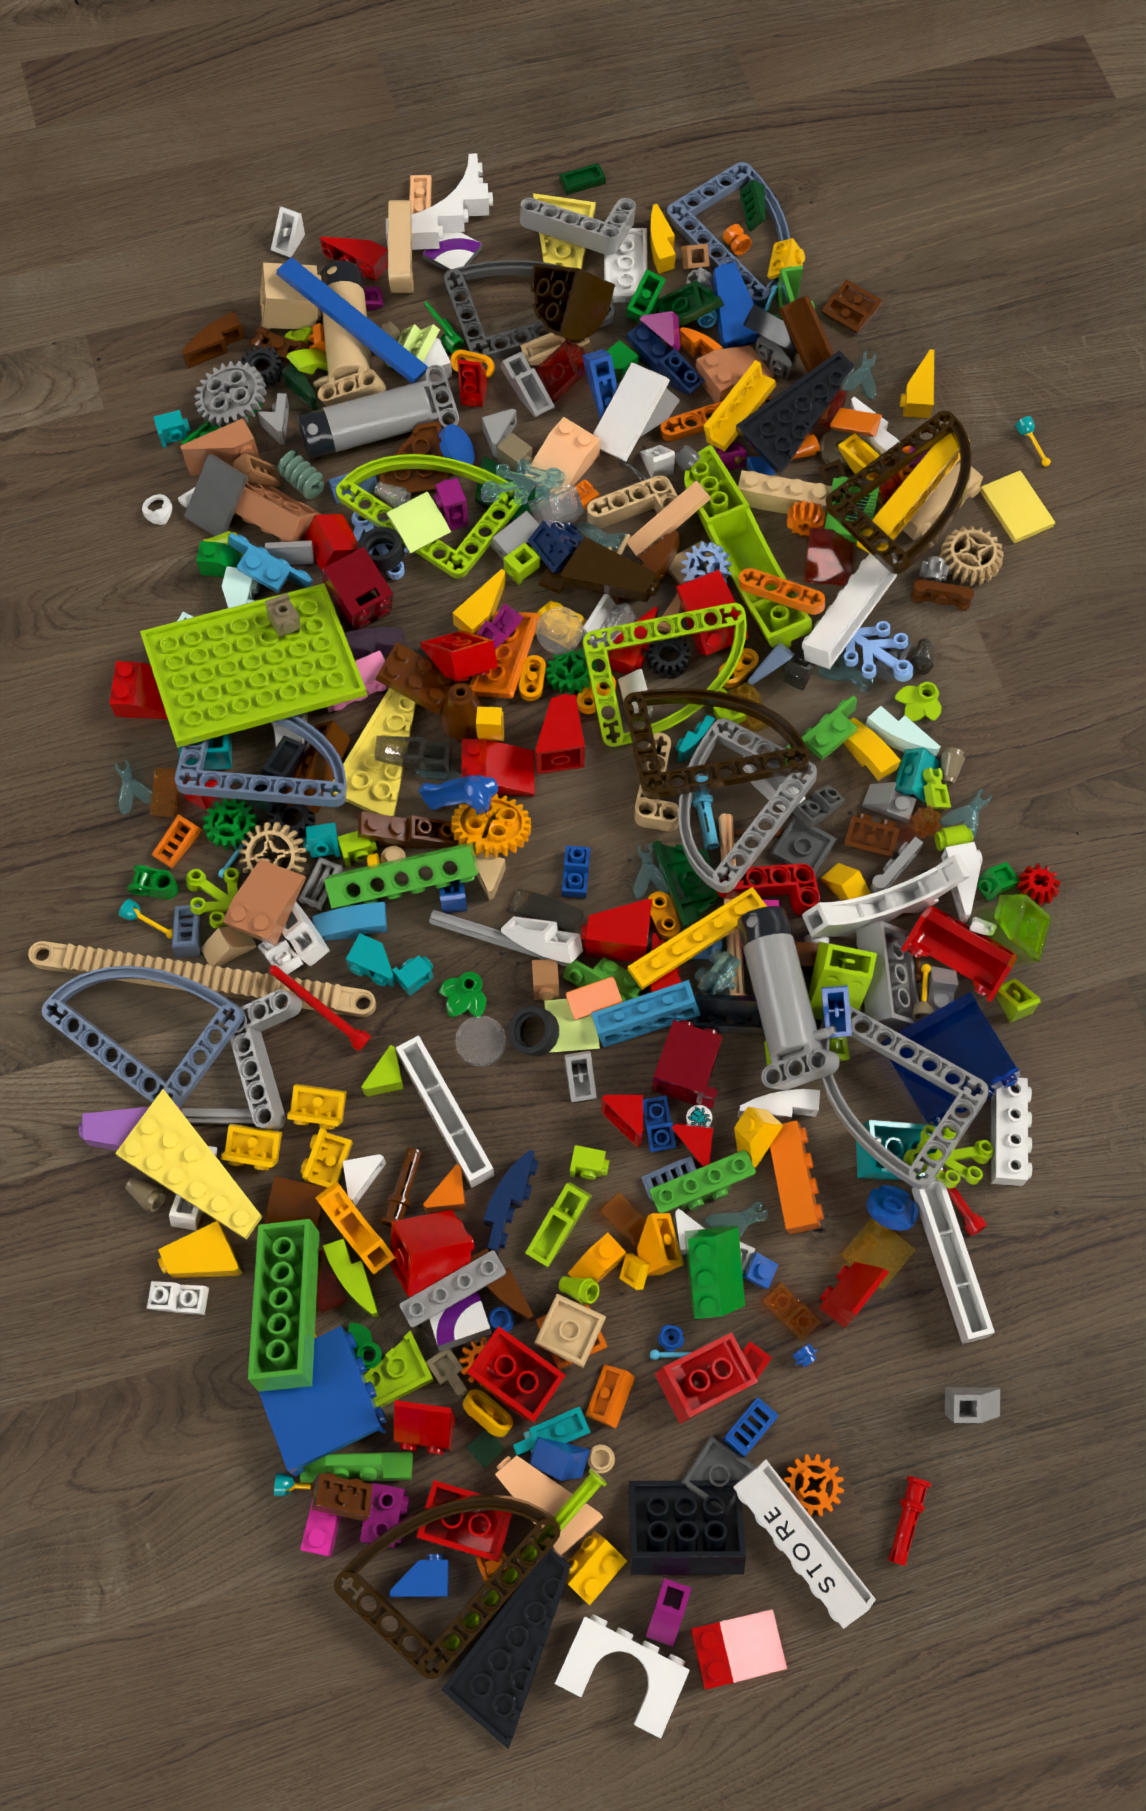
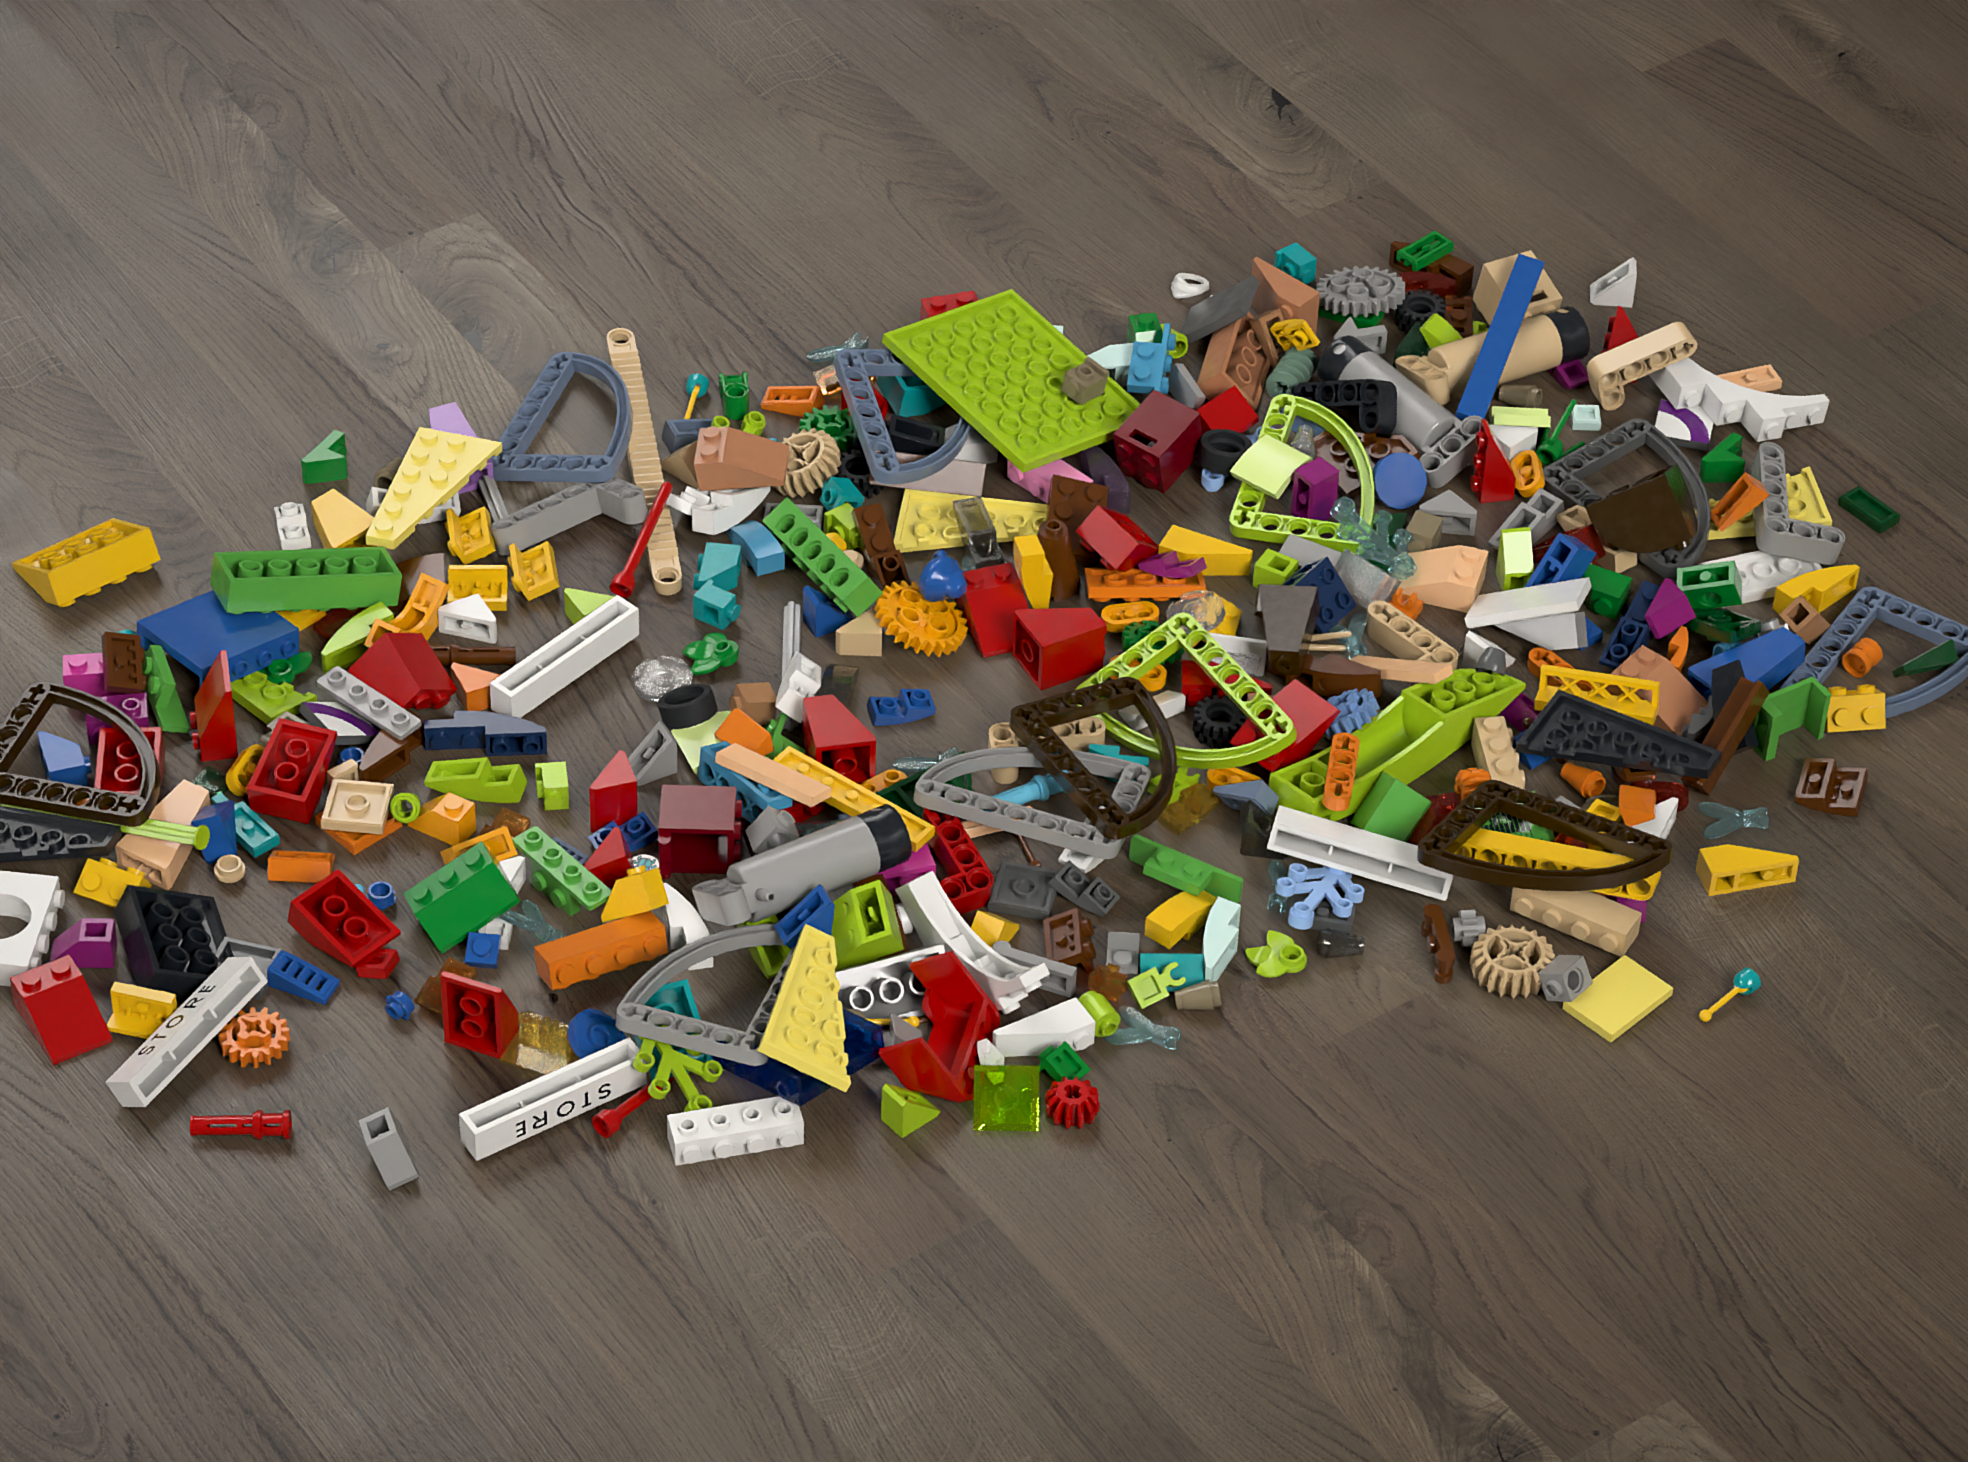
camera: 70 degrees right, 25 degrees down
(108, 1249) = (326, 460): none -> green slope
(156, 1497) = (88, 561): none -> yellow slope
(211, 348) = (1428, 252): none -> green tile
(236, 347) = (1434, 282): none -> clear red slope
(284, 449) = (1294, 333): none -> yellow slope
(385, 430) = (1373, 397): none -> black beam
(416, 307) = (1586, 417): none -> light aqua tile
(506, 242) = (1723, 462): none -> green slope
(524, 1332) = (346, 770): none -> tan tile
(574, 404) = (1514, 558): none -> slope
(581, 246) = (1738, 501): none -> orange slope
(634, 1271) = (438, 845): yellow tile -> none
(661, 988) = (773, 775): none -> light nougat tile
(715, 1008) = (771, 830): none -> light grey brick
(766, 1577) = (139, 1009): none -> yellow bracket
(810, 571) = (1391, 809): none -> bright green slope
(950, 1040) = (807, 1016): none -> light yellow wing
(1003, 529) = (1565, 978): none -> light grey brick

